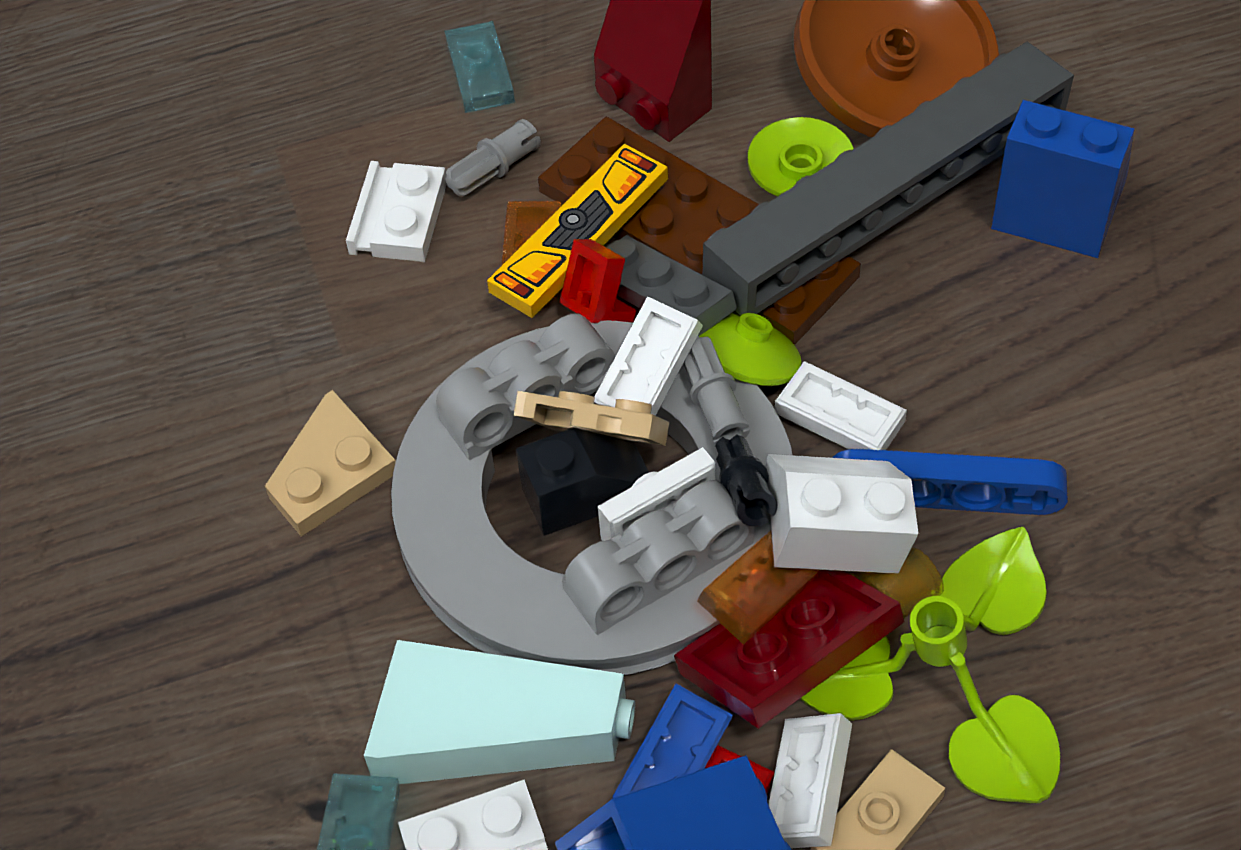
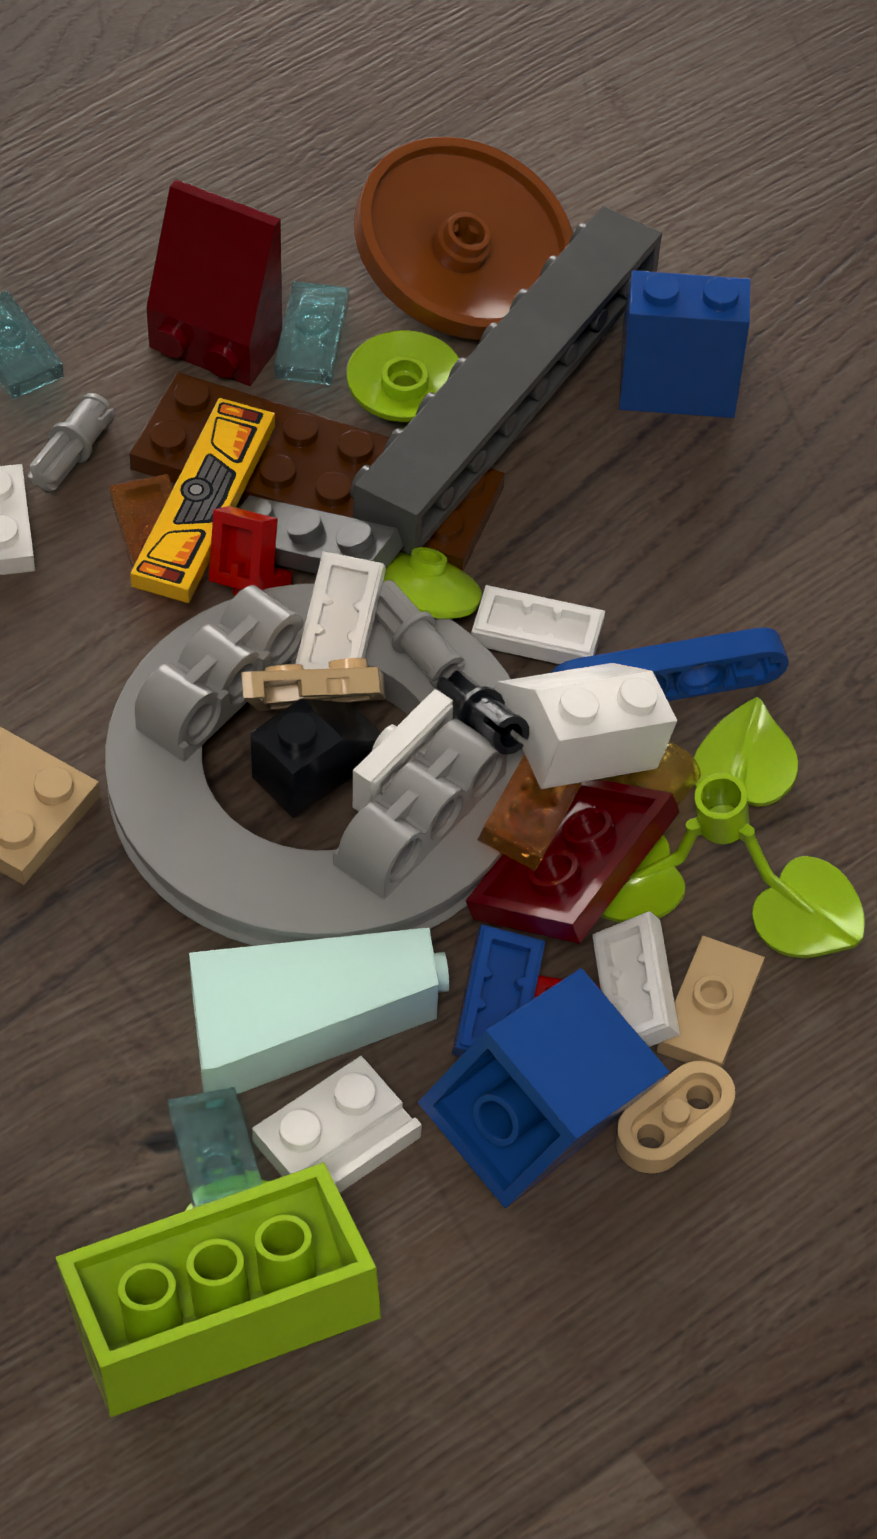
camera: 25 degrees left, 0 degrees up
(737, 106) = (311, 333): none -> clear light blue plate

